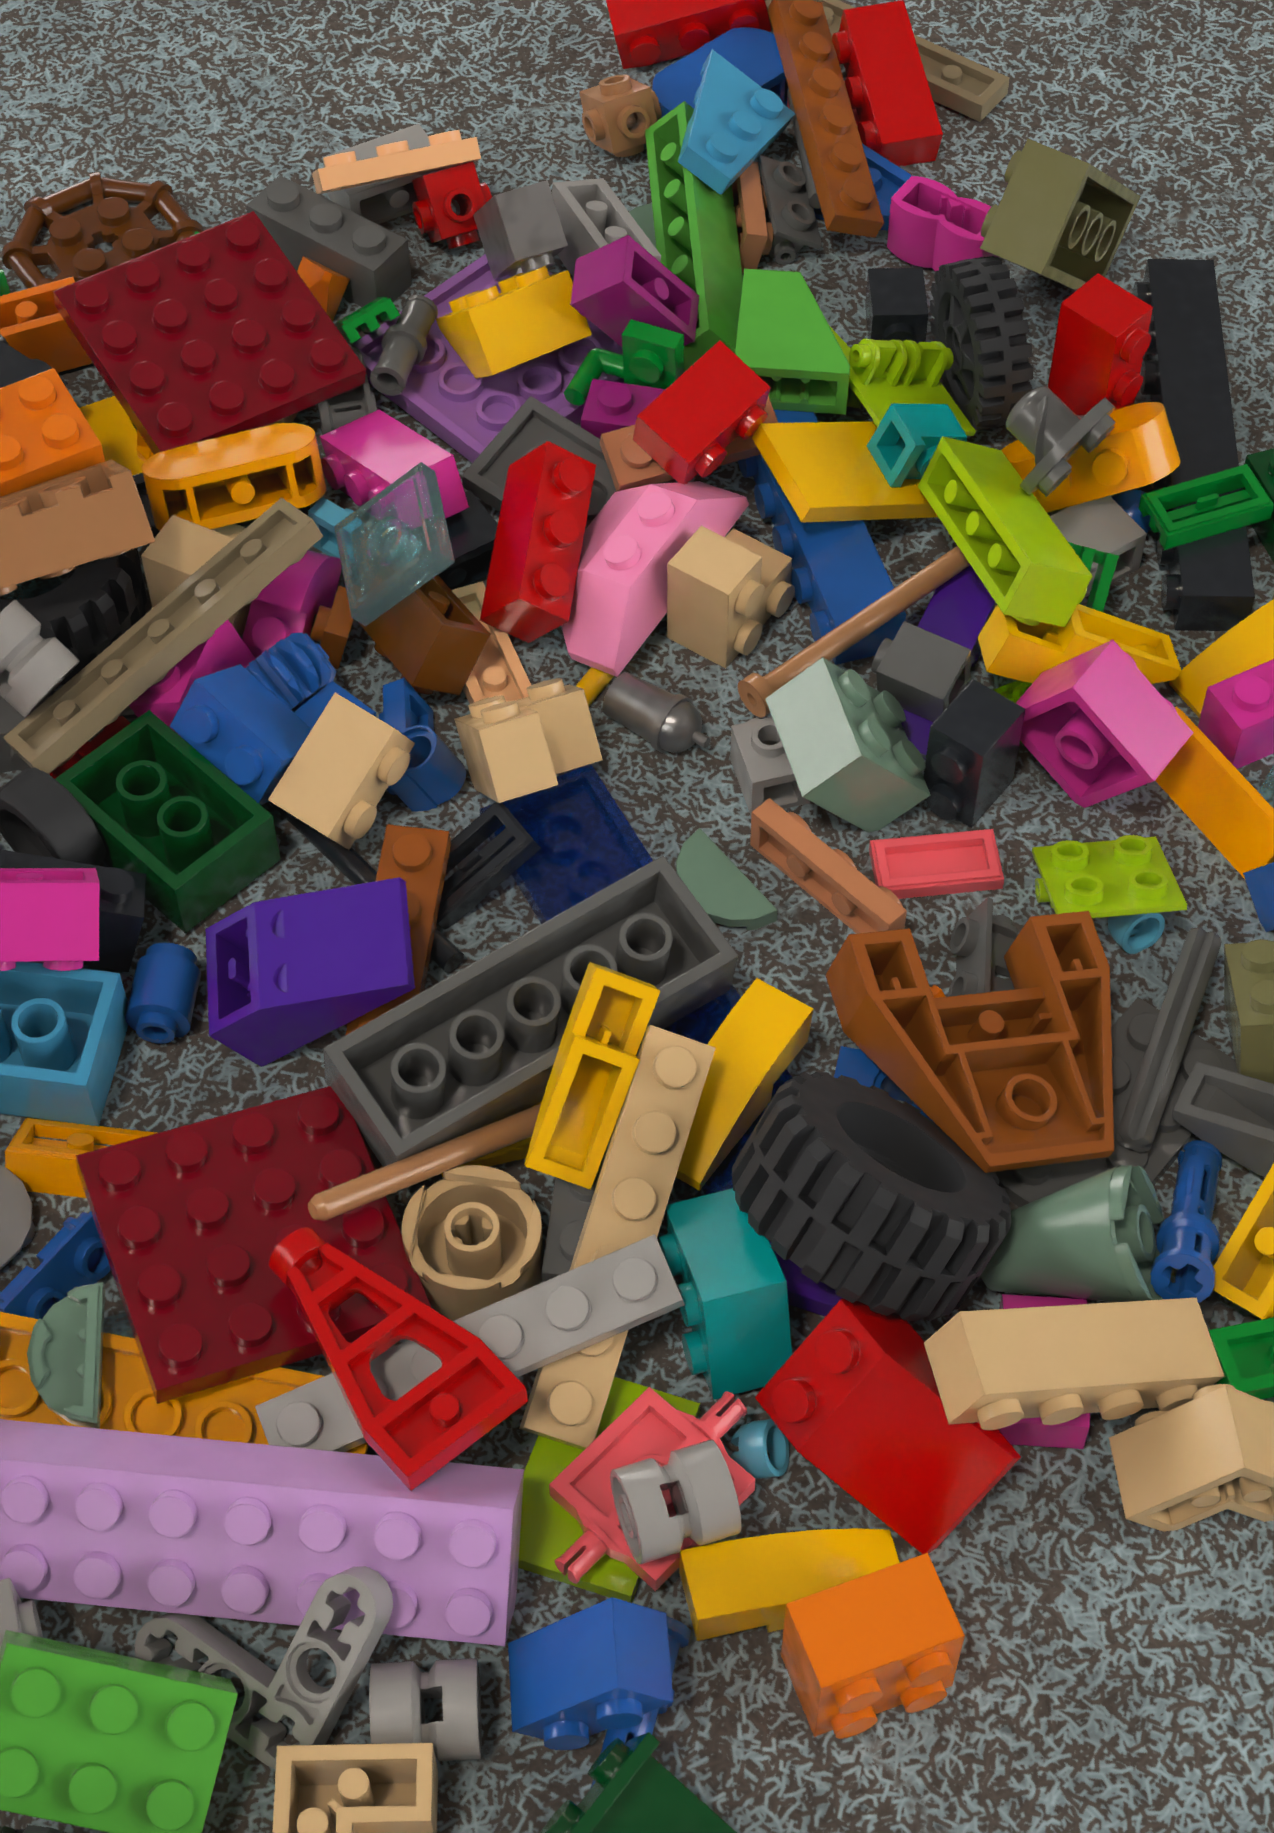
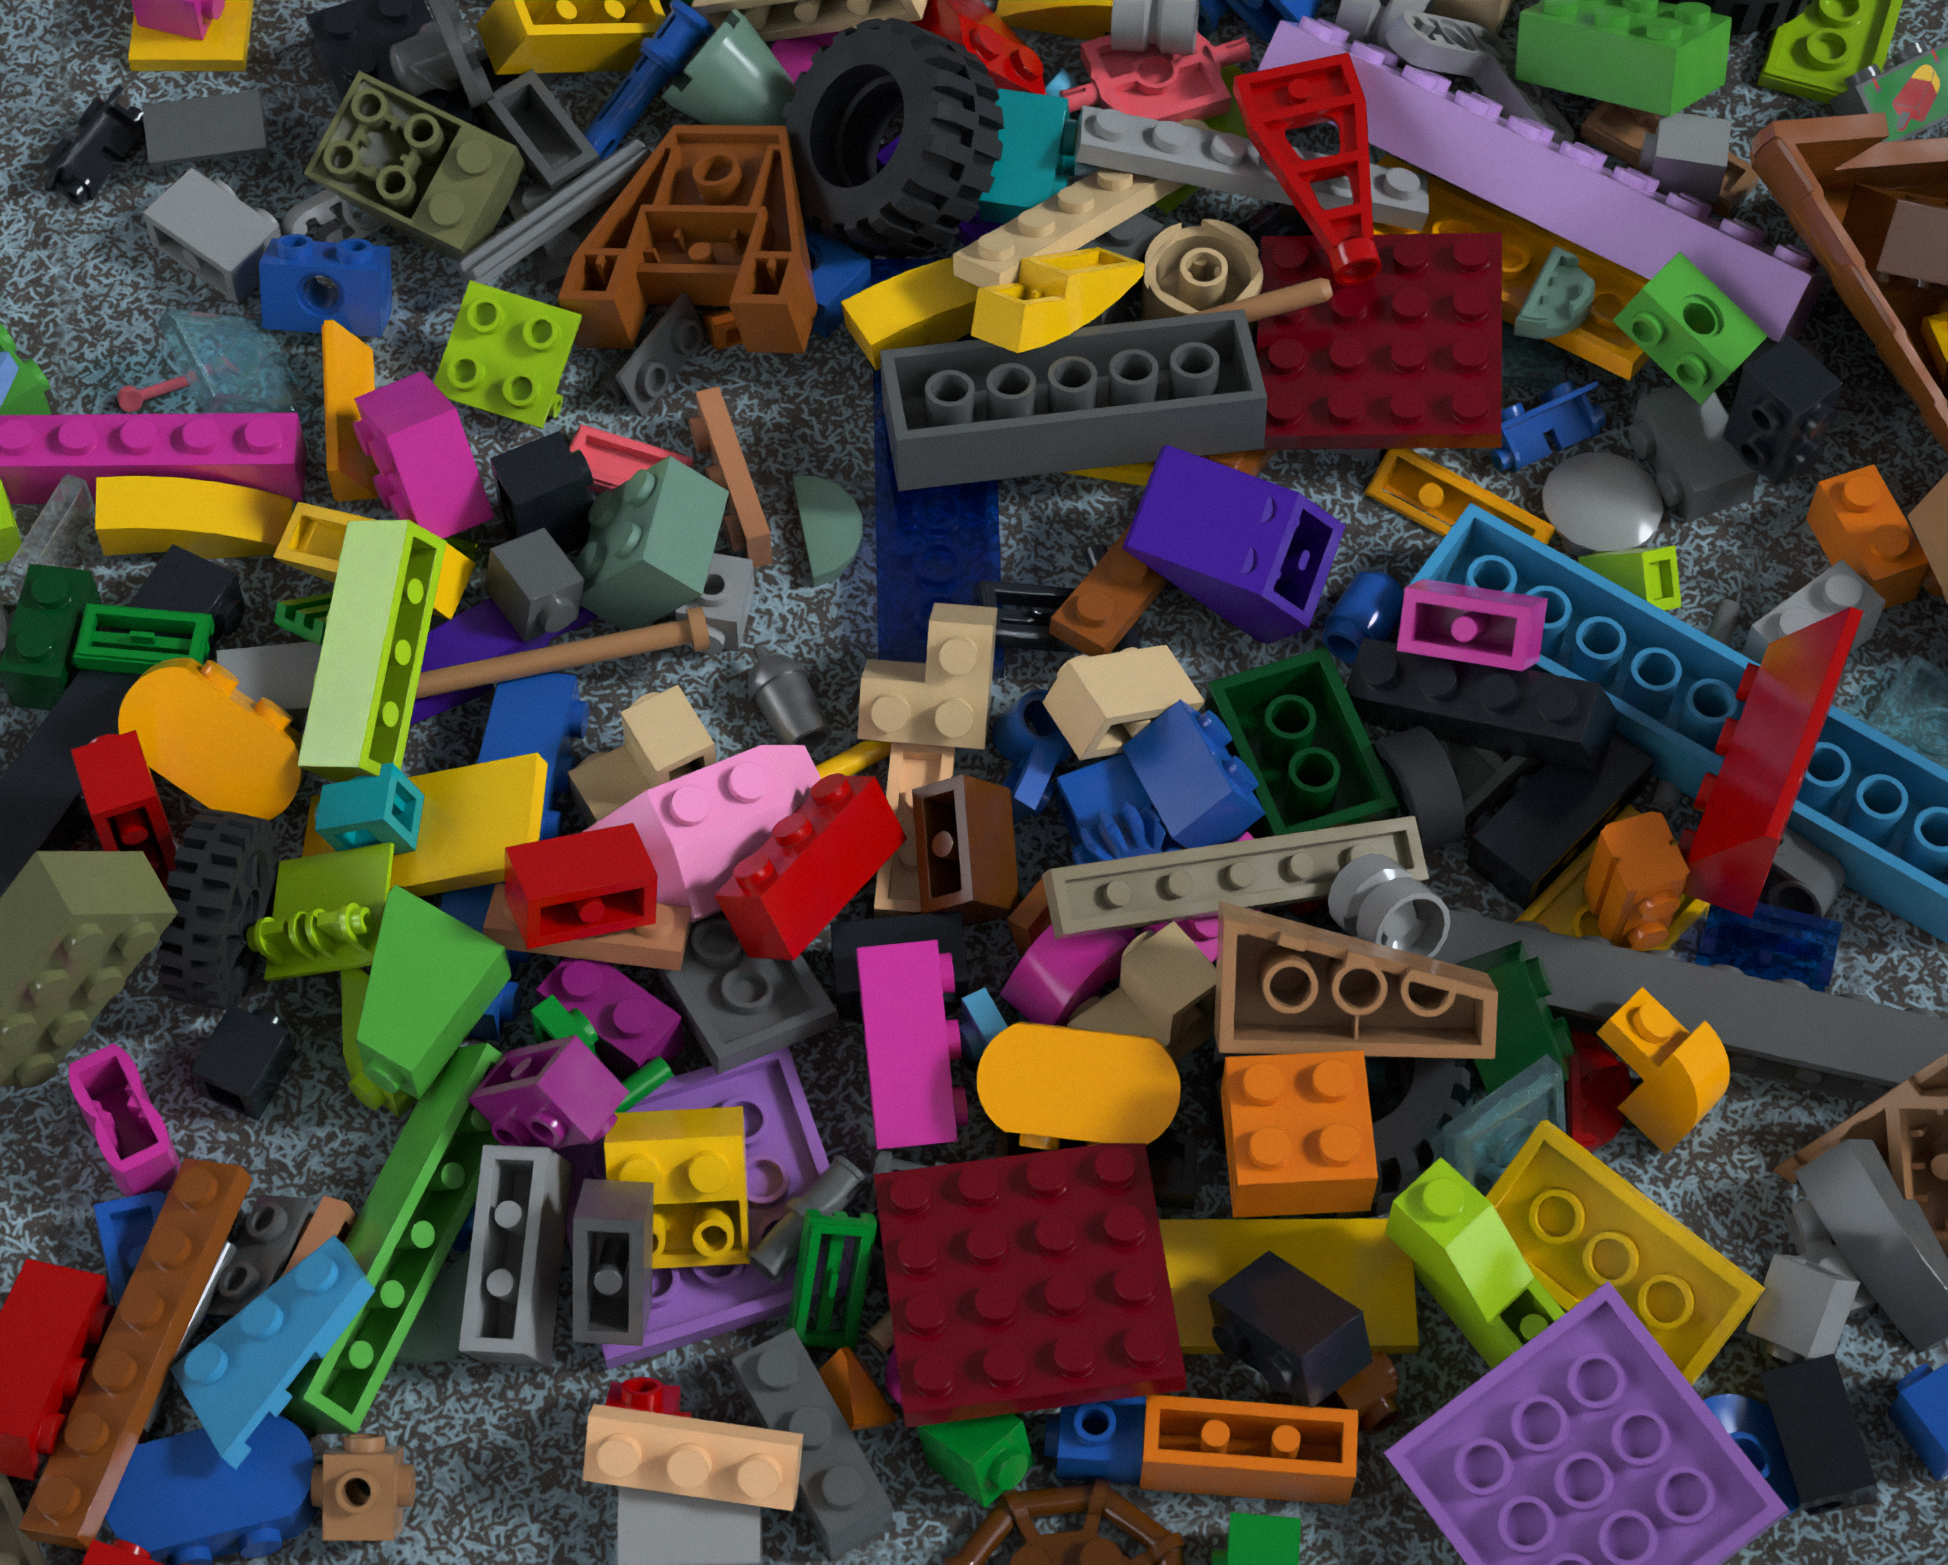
camera: 155 degrees left, 5 degrees up
(394, 544) = (965, 883): clear light blue plate -> none
(1055, 434) = (267, 655): dark grey plate -> none

